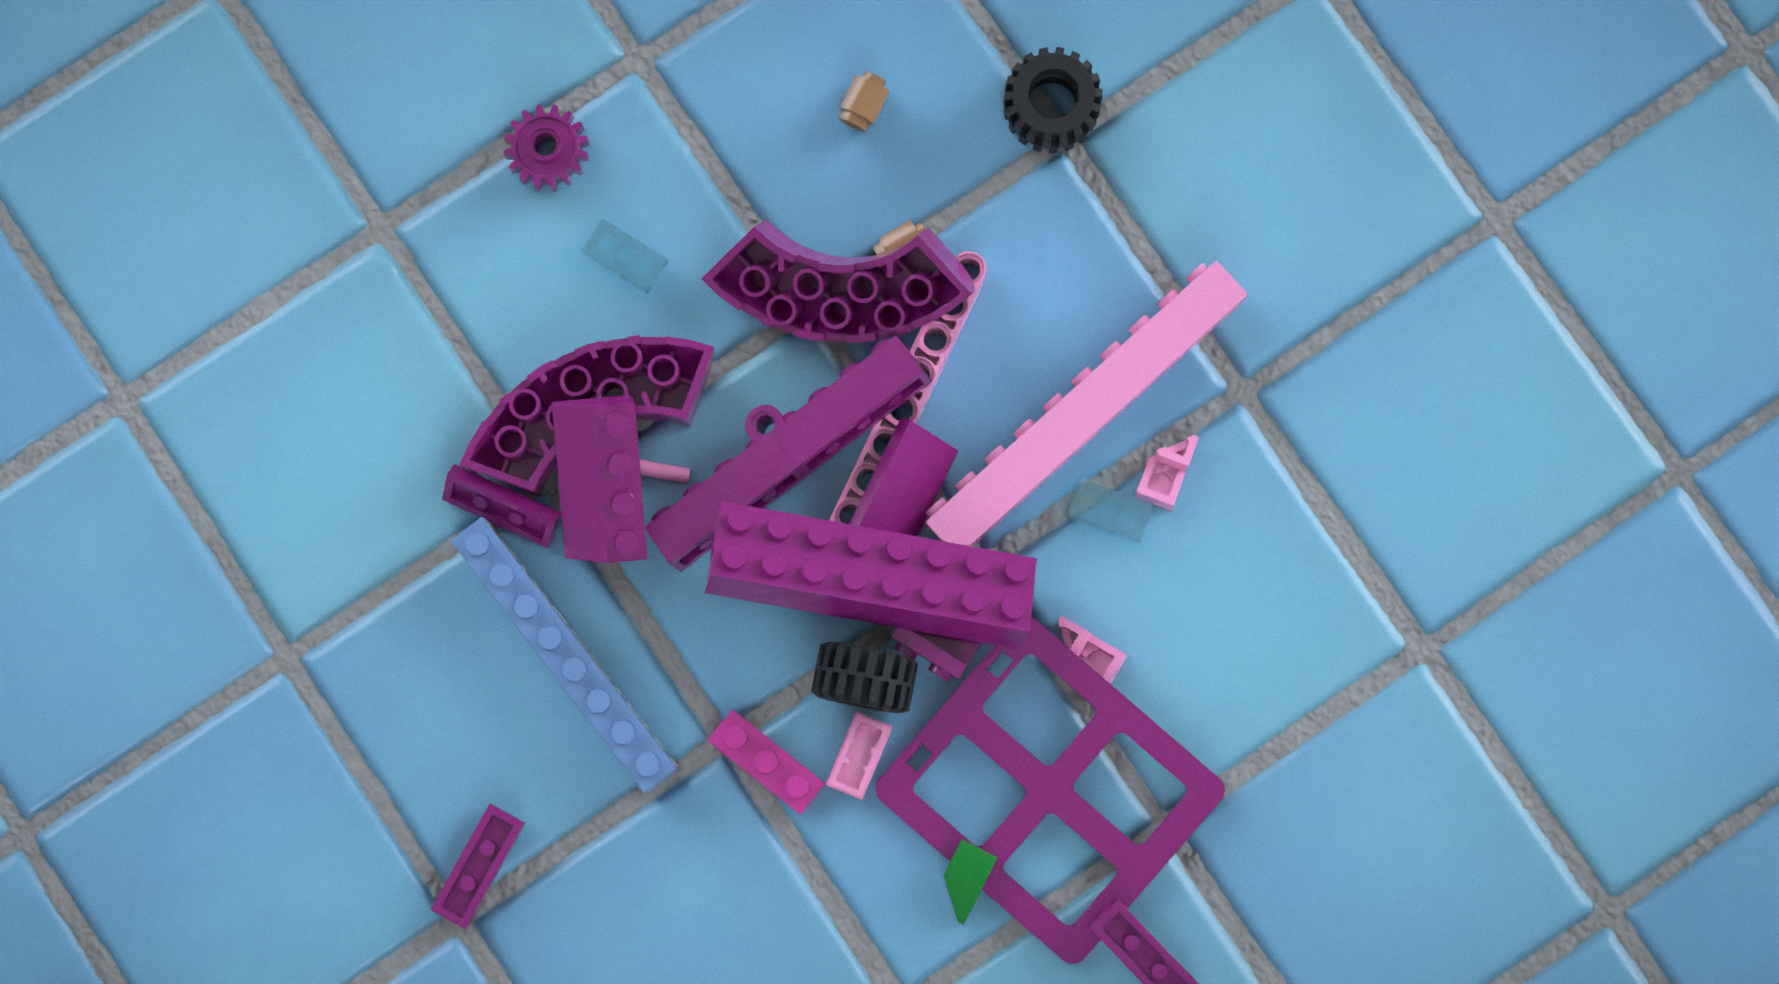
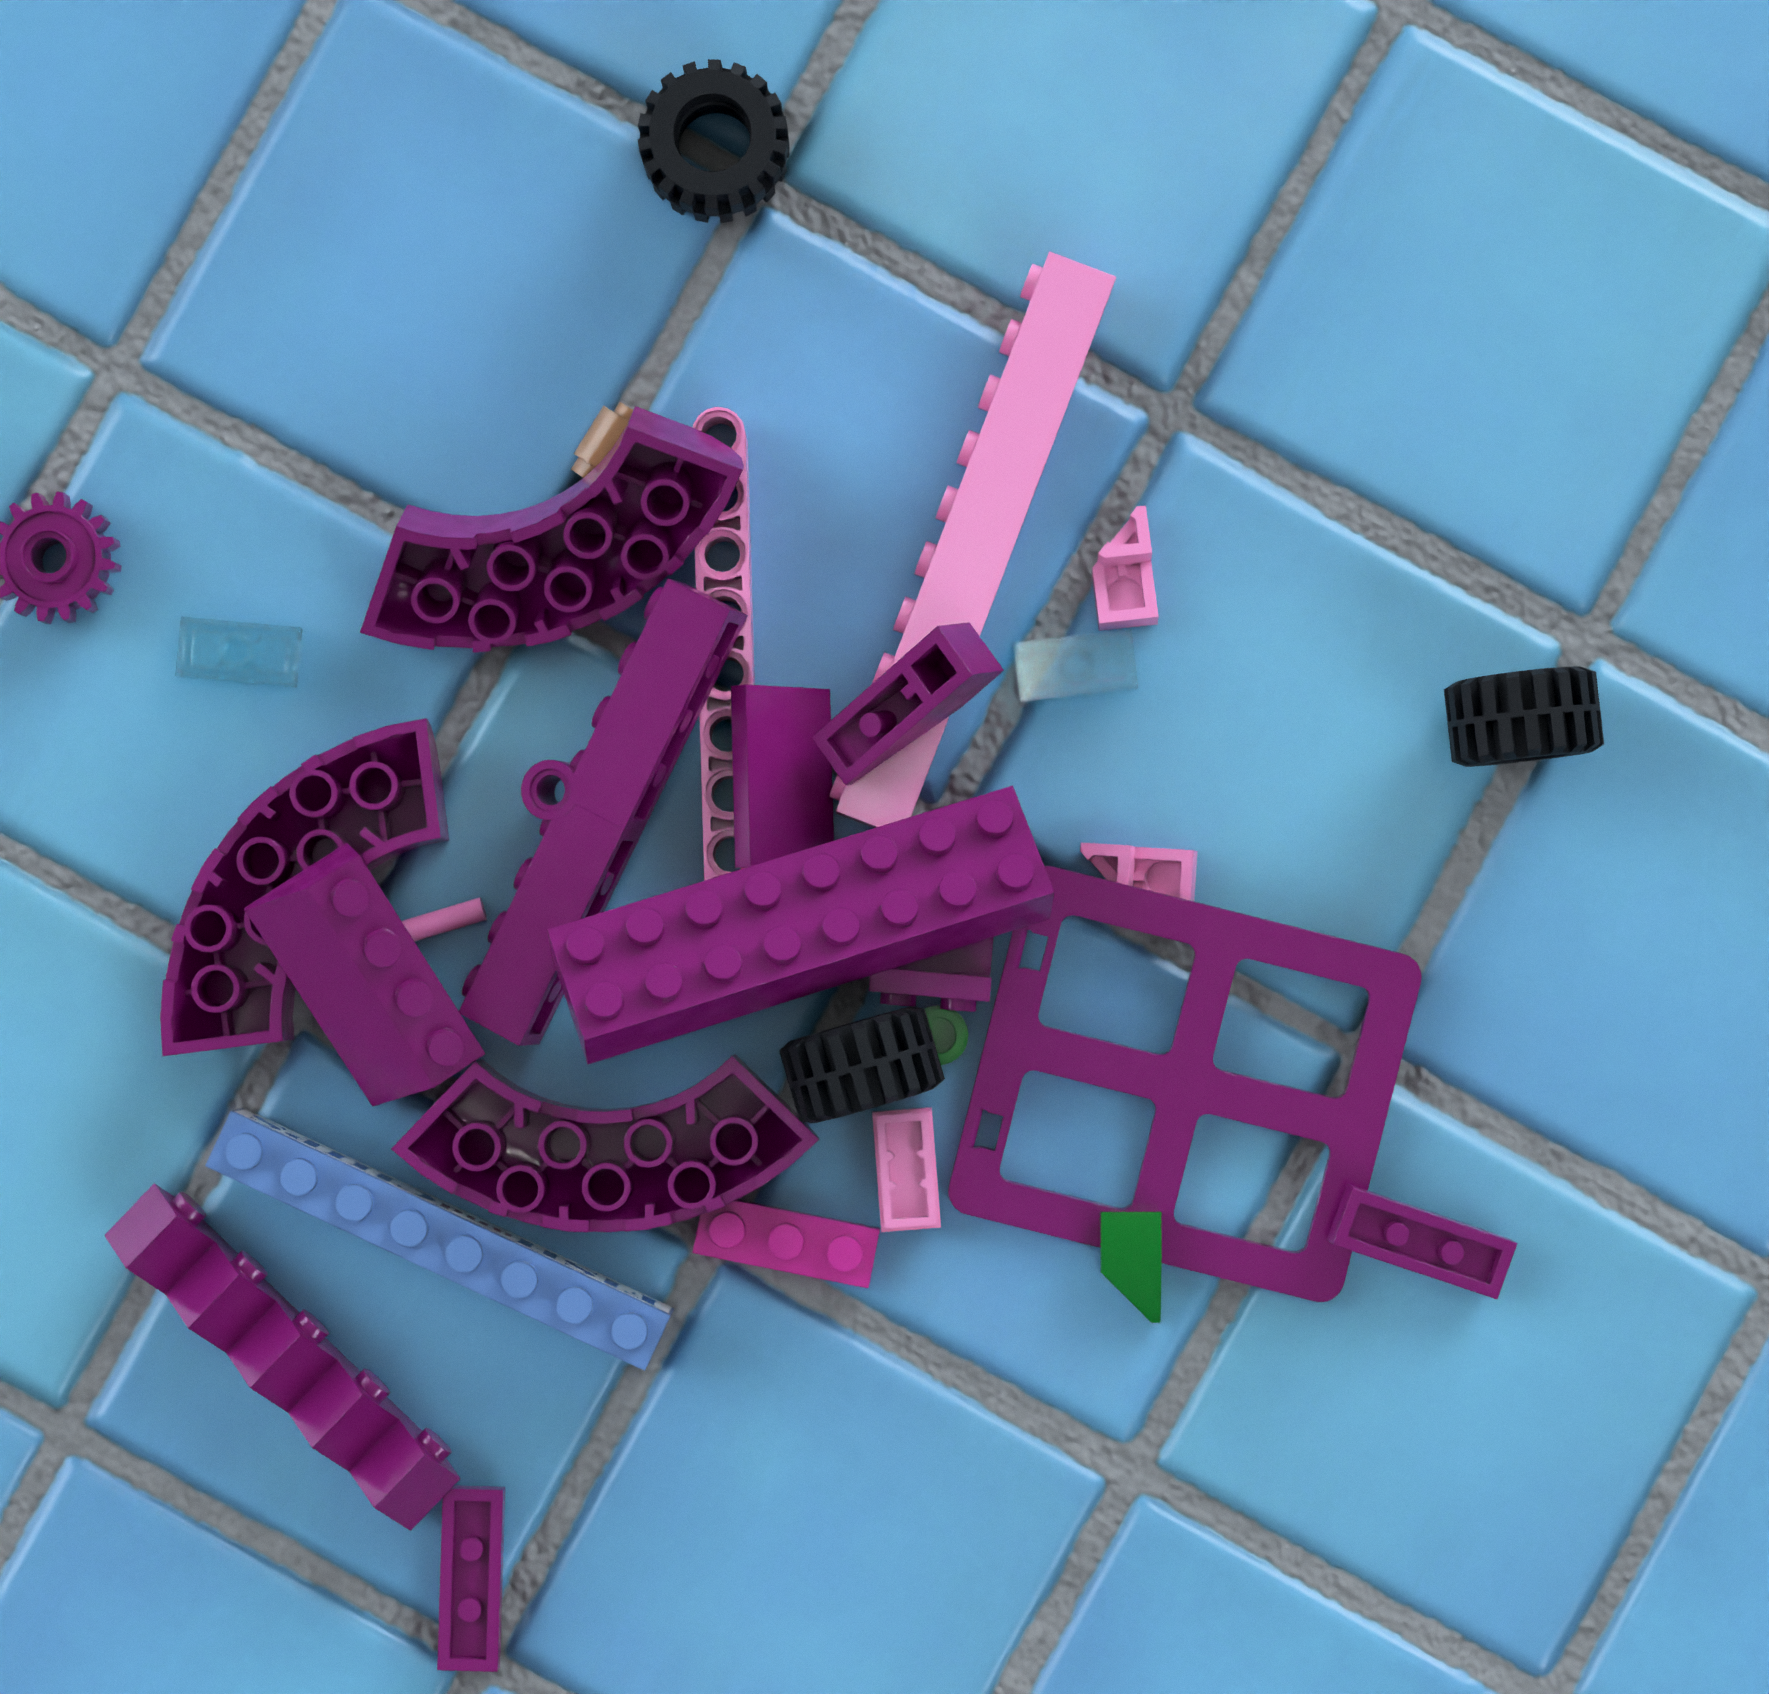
camera: 30 degrees left, 5 degrees up
(438, 677) = (284, 1354): none -> magenta brick
(501, 505) = (248, 1080): magenta plate -> none
(683, 661) = (605, 1166): none -> magenta brick
(863, 101) = (456, 273): medium nougat brick -> none
(924, 688) = (948, 1032): none -> green tile
(1001, 477) = (908, 700): none -> magenta slope
(1360, 671) = (1523, 716): none -> black tyre

